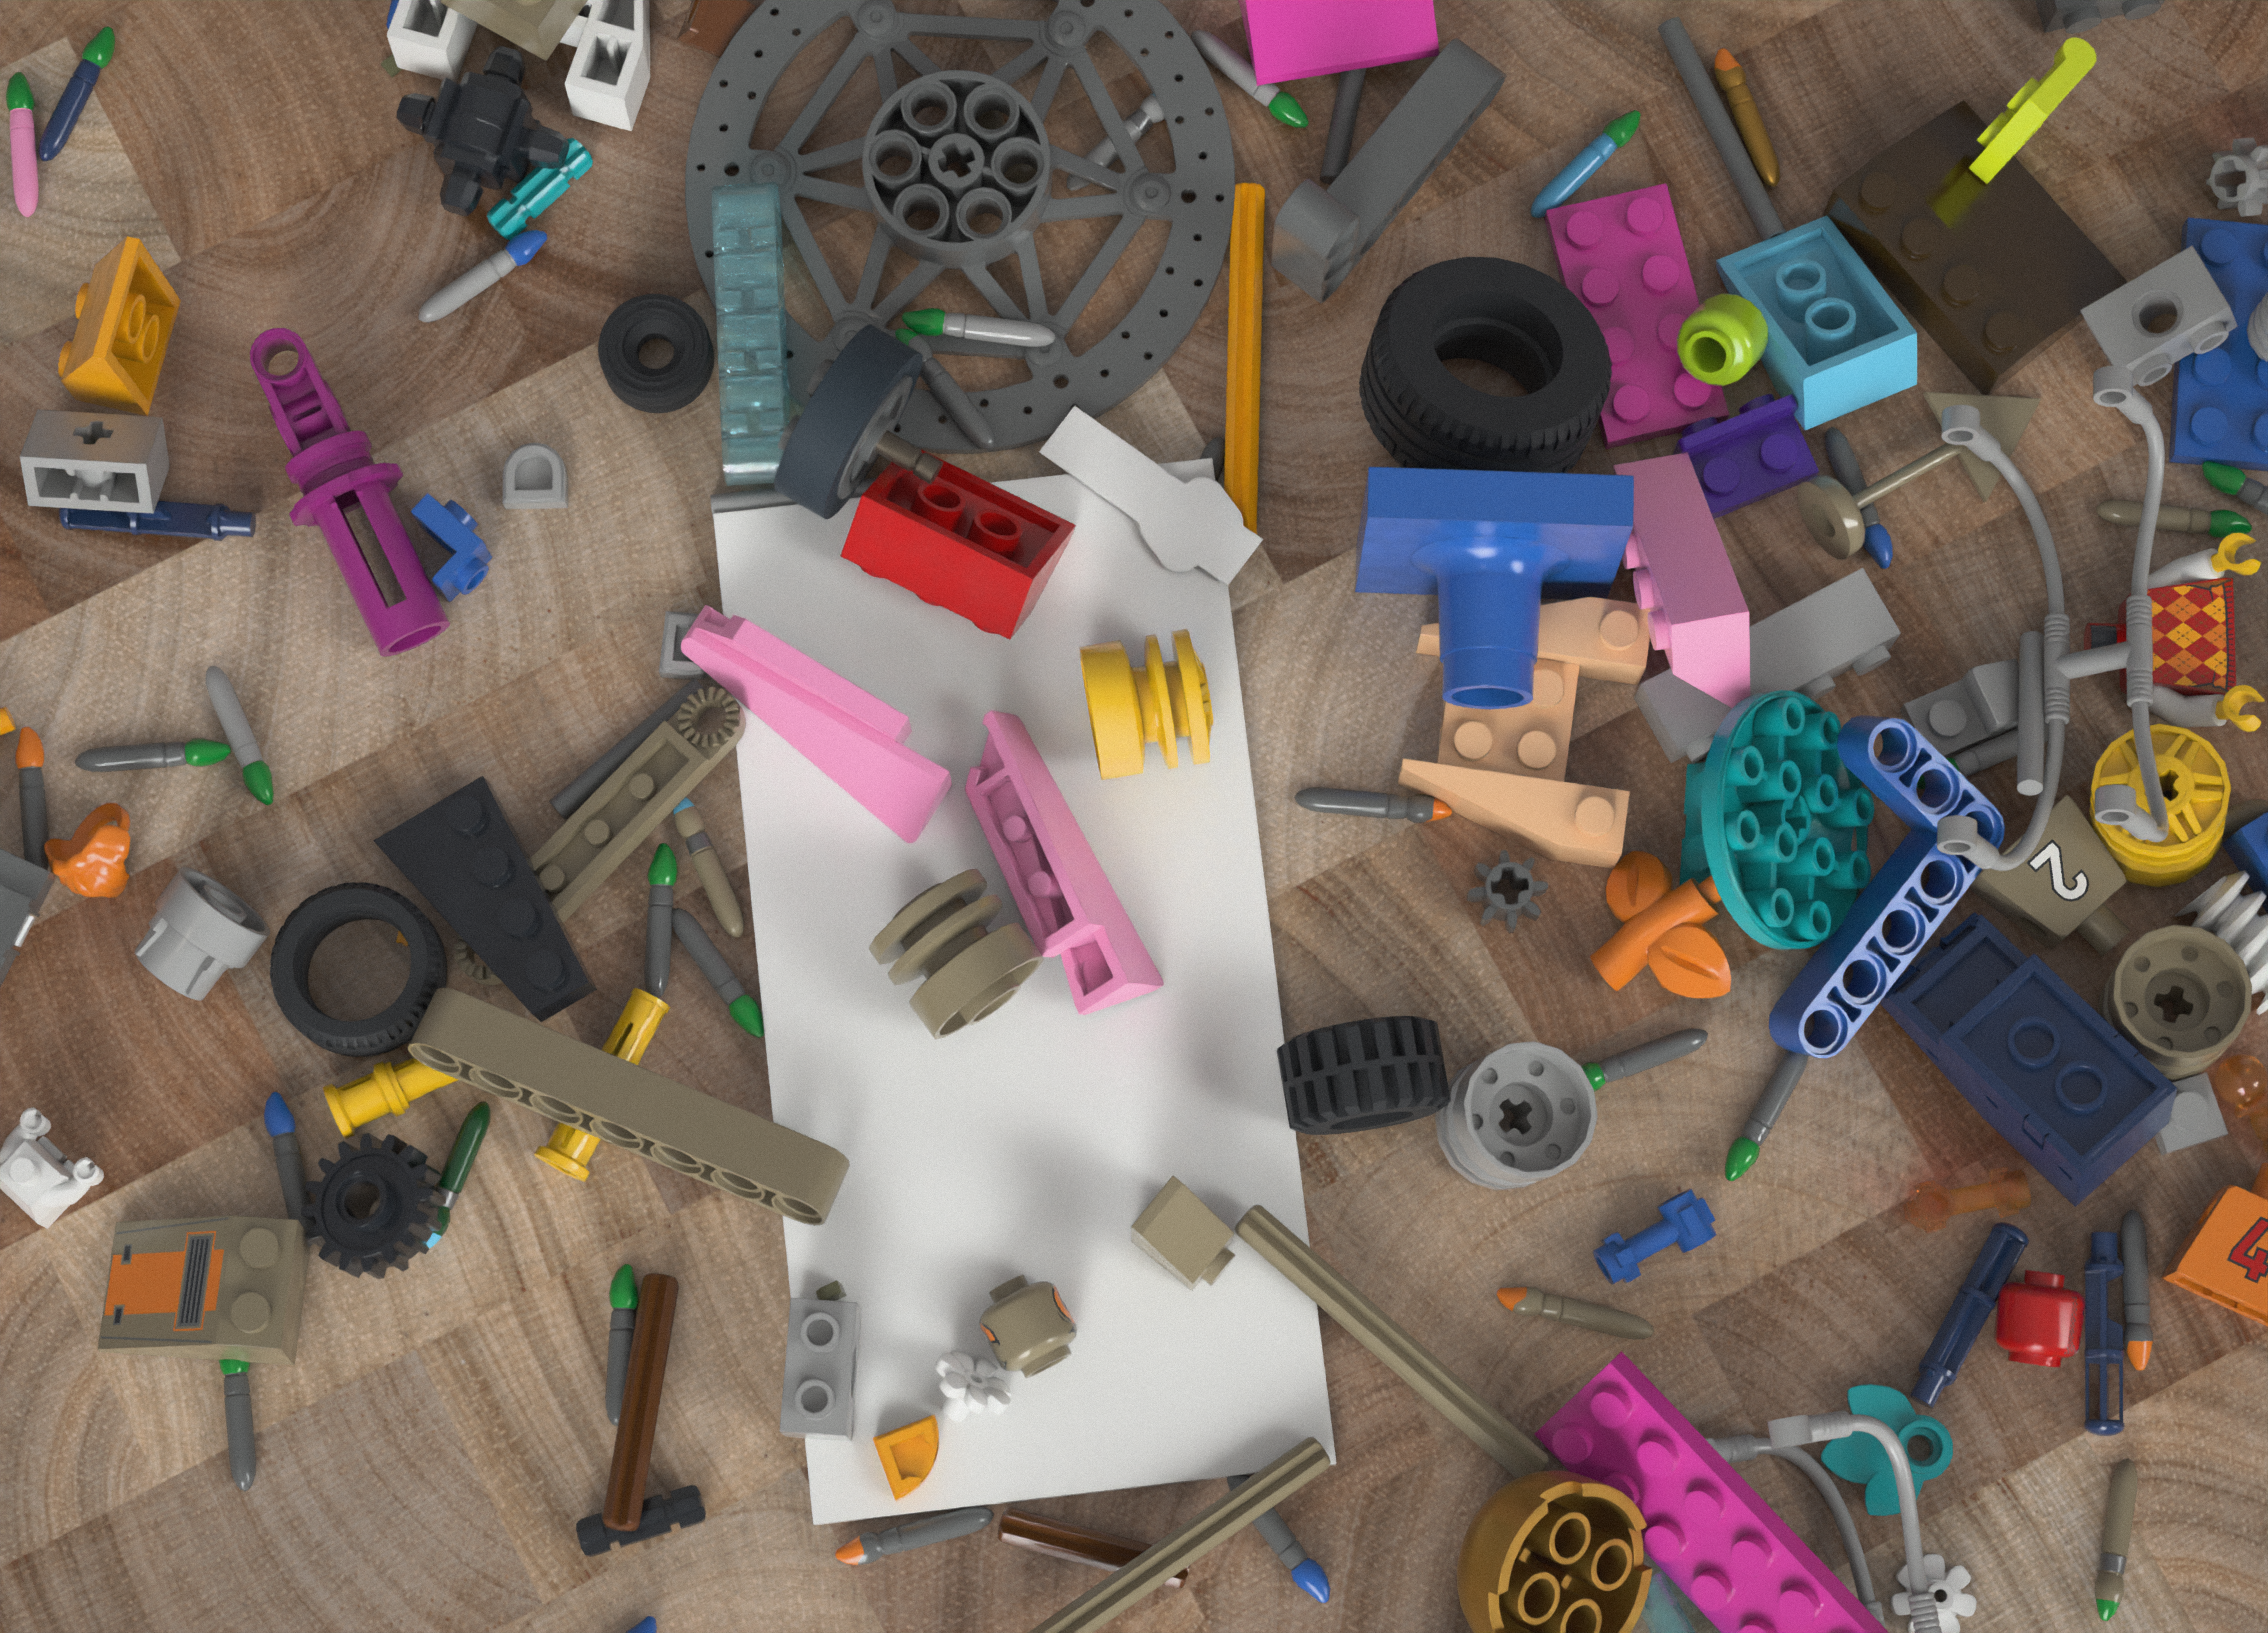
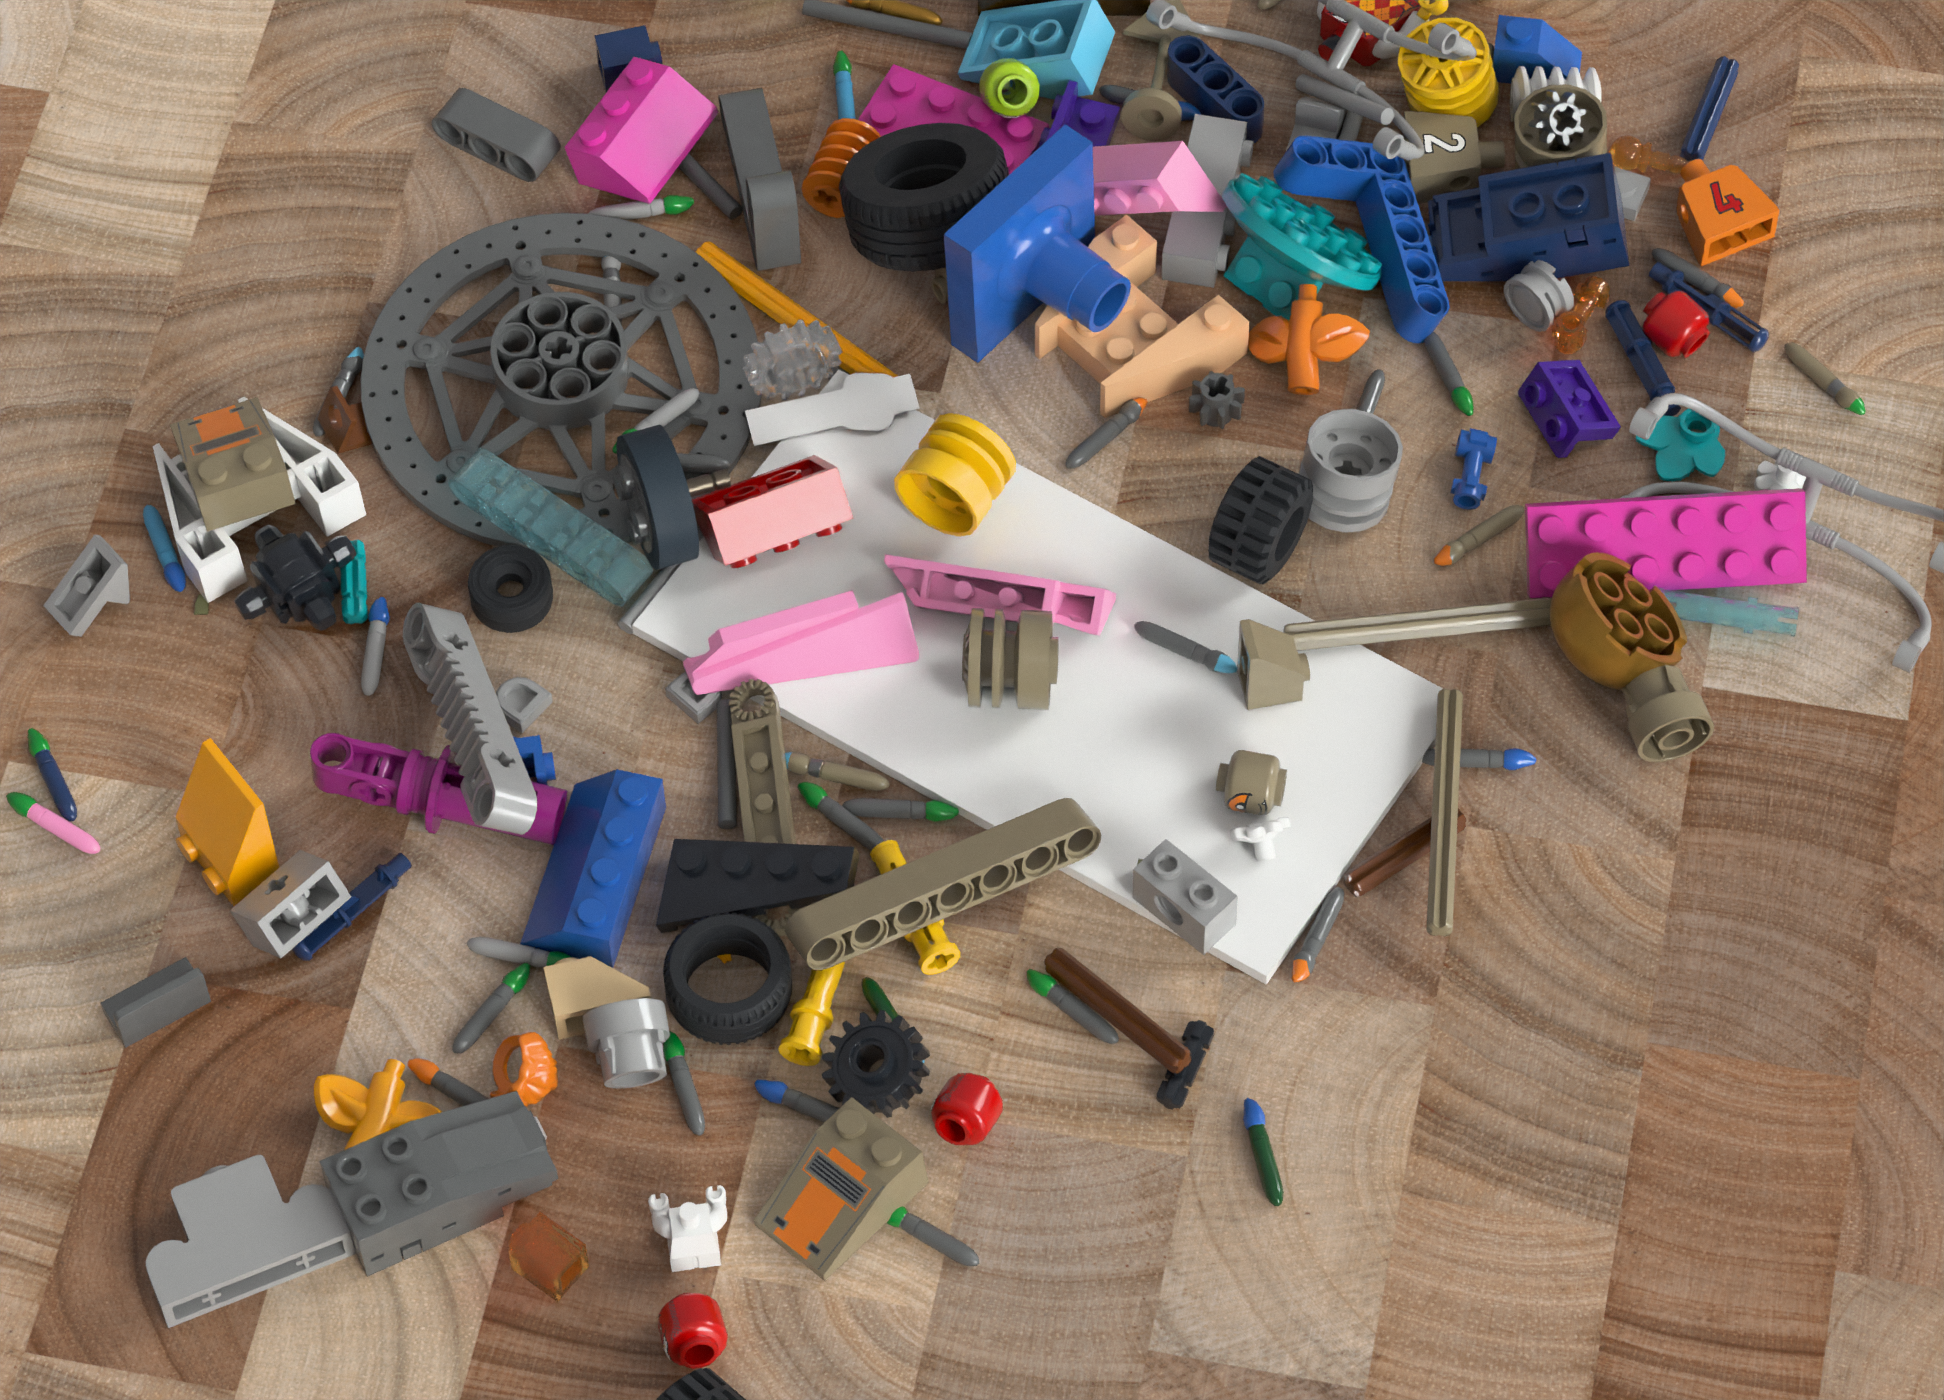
camera: 50 degrees left, 20 degrees down
(217, 1020) = (688, 1098): none -> dark grey piece
(233, 844) = (582, 985): none -> tan slope
(389, 726) = (597, 866): none -> blue slope
(401, 1339) = (966, 1109): none -> red head
(492, 379) = (492, 767): none -> light grey gear
(908, 1455) = (1270, 897): light orange tile -> none
(1158, 1158) = (1213, 659): none -> dark grey piece
(1161, 407) = (792, 360): none -> clear gear
(1489, 232) = (839, 145): none -> orange piece
(1827, 1281) = (1566, 405): none -> dark purple bracket
(1942, 531) = (1213, 85): none -> dark blue beam
(1944, 1137) = (1538, 295): none -> light grey wheel
(2181, 986) = (1565, 109): none -> dark grey gear

